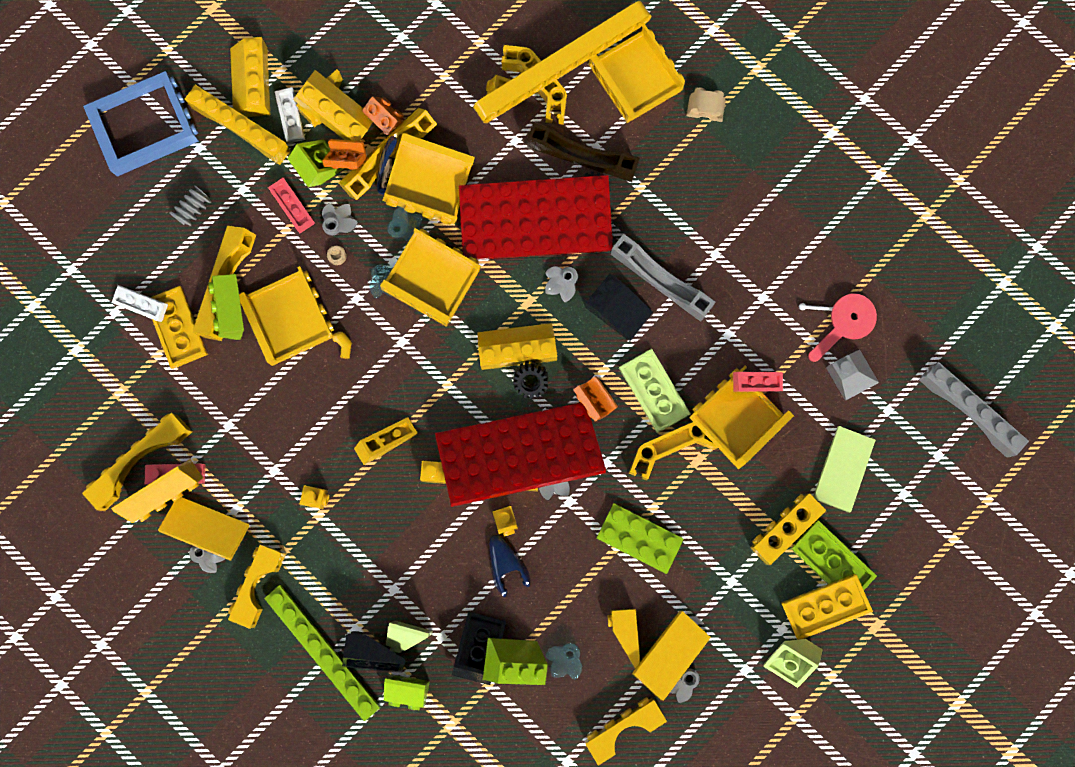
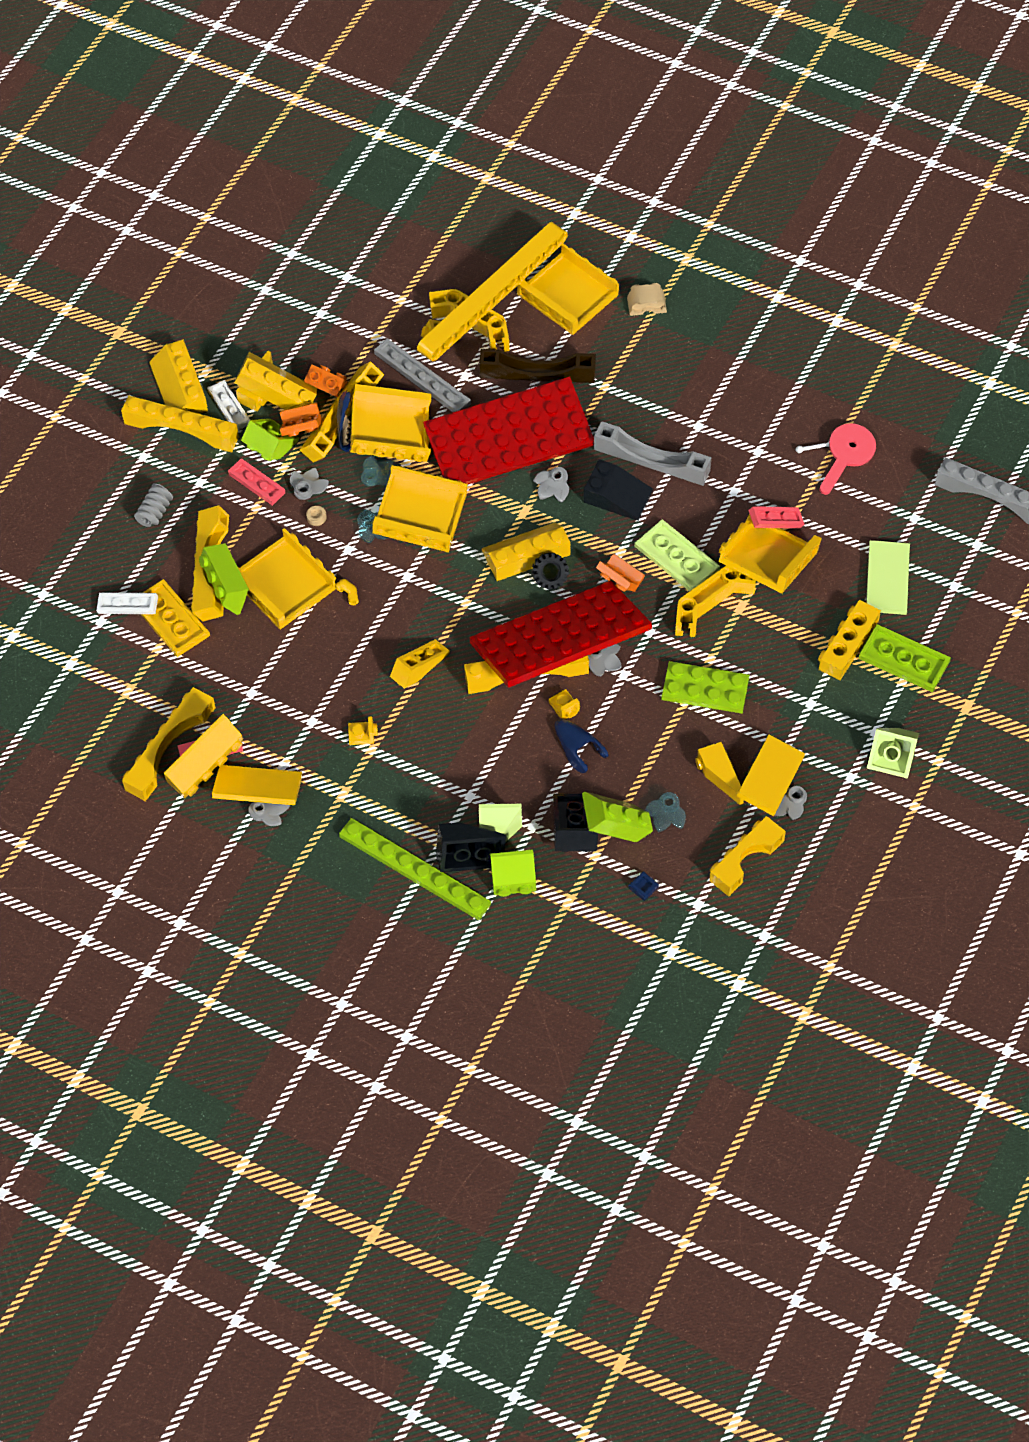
camera: 15 degrees left, 20 degrees down
(151, 152) = (70, 487): medium blue window -> none
(246, 609) = (332, 800): yellow arch -> none
(474, 133) = (422, 376): none -> light grey plate
(522, 730) = (643, 886): none -> dark blue tile
(827, 607) = (911, 695): yellow tile -> none
(852, 374) = (866, 494): light grey slope -> none

